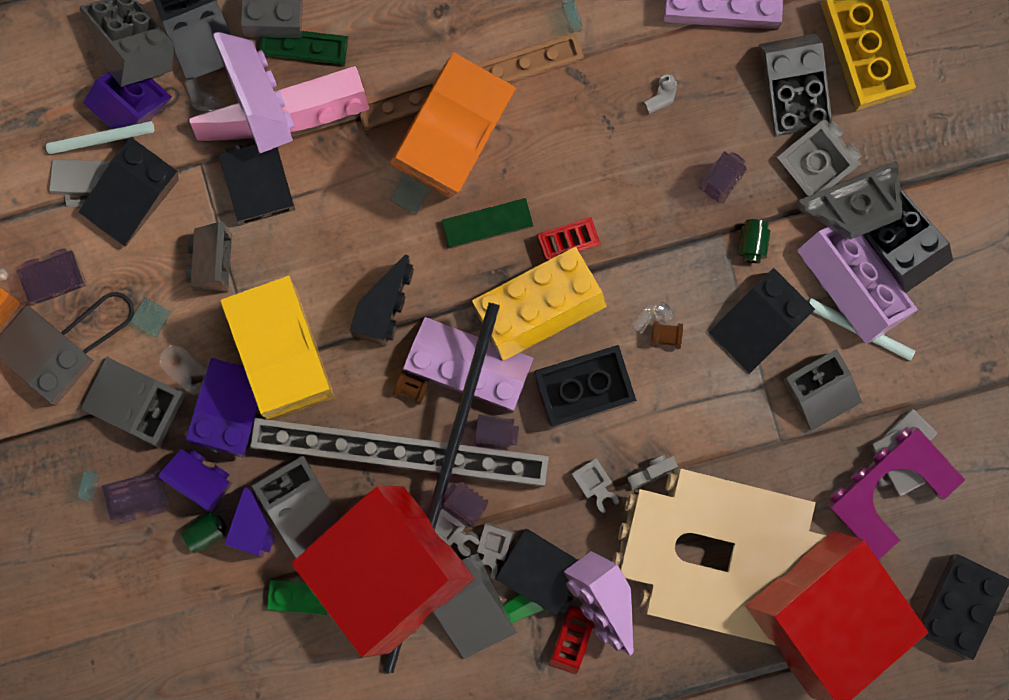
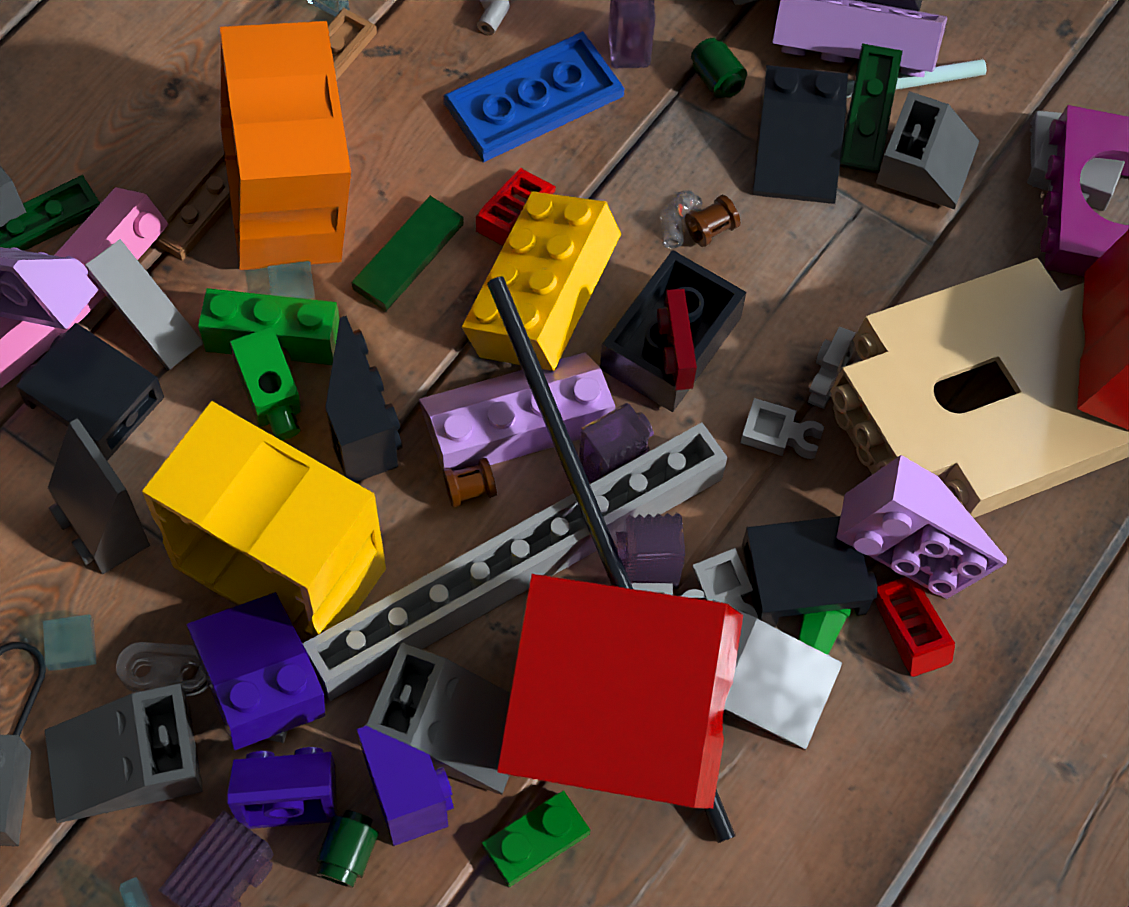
camera: 35 degrees left, 20 degrees down
(318, 154) = (143, 304): none -> light grey tile
(349, 240) = (267, 382): none -> green torso
(377, 216) = (302, 325): none -> green arch
(576, 392) = (679, 355): none -> dark red plate
(638, 174) = (533, 96): none -> blue tile
(813, 336) = (870, 108): none -> dark green tile

